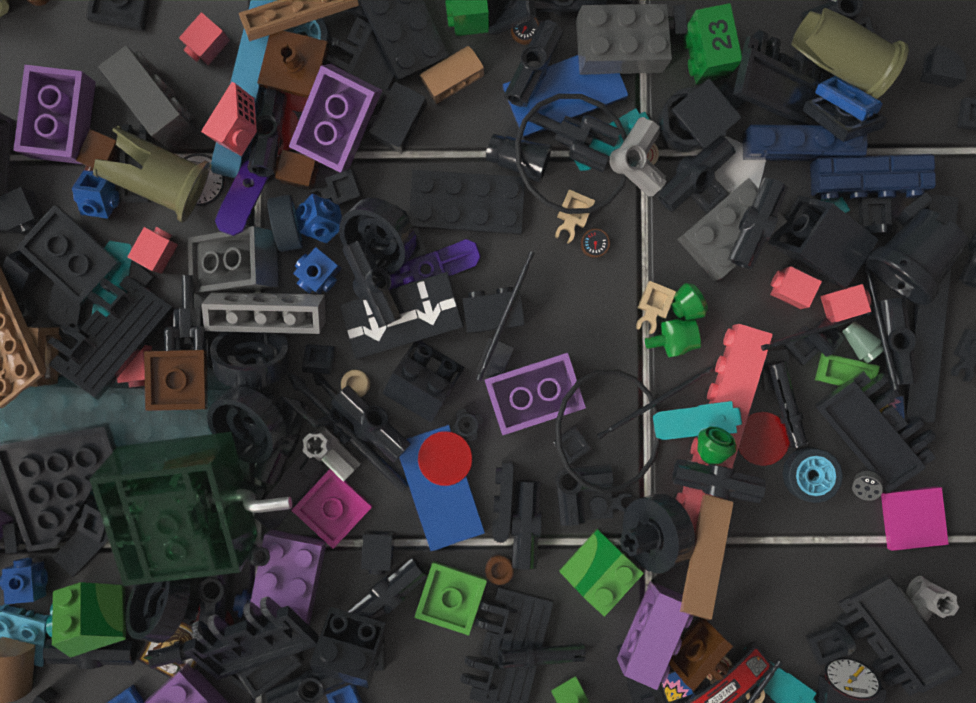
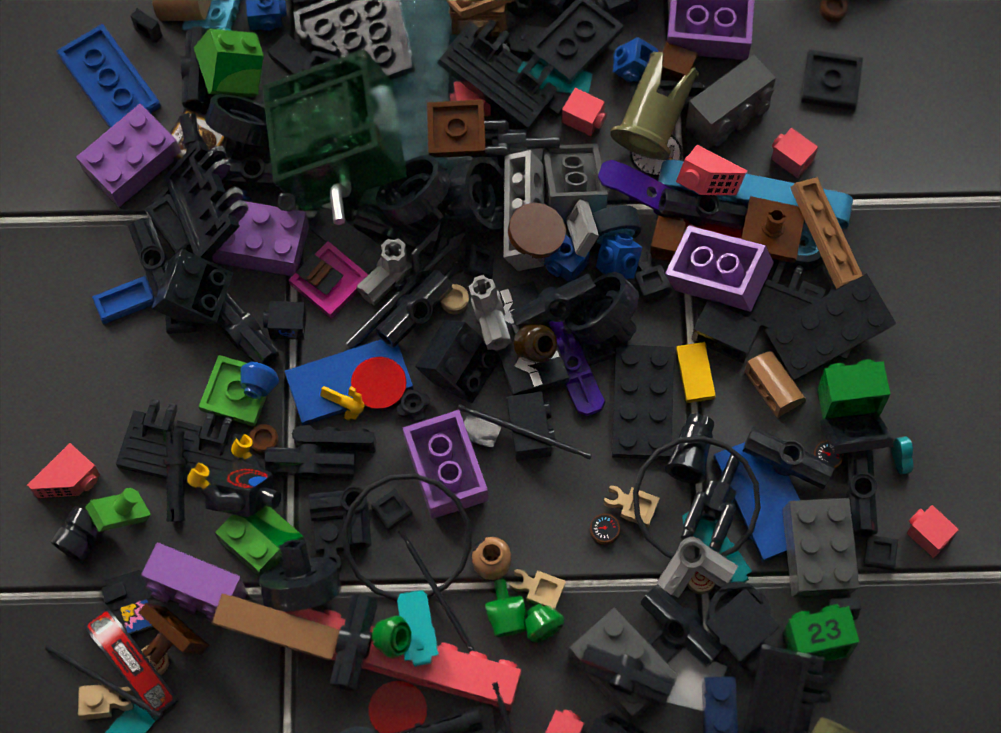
camera: 85 degrees right, 20 degrees down
(291, 252) = (582, 228): none -> light grey tile
(295, 298) = (536, 230): none -> reddish brown tile
(327, 518) = (319, 274): none -> black piece
(378, 348) = (489, 313): none -> light grey piece
(416, 303) = (535, 343): none -> dark brown head
(437, 150) = (695, 372): none -> yellow tile
(447, 579) = (258, 379): none -> blue cone
(468, 484) = (354, 404): none -> yellow piece
(559, 593) = (240, 487): none -> black torso
(638, 348) = (491, 549): none -> medium nougat head

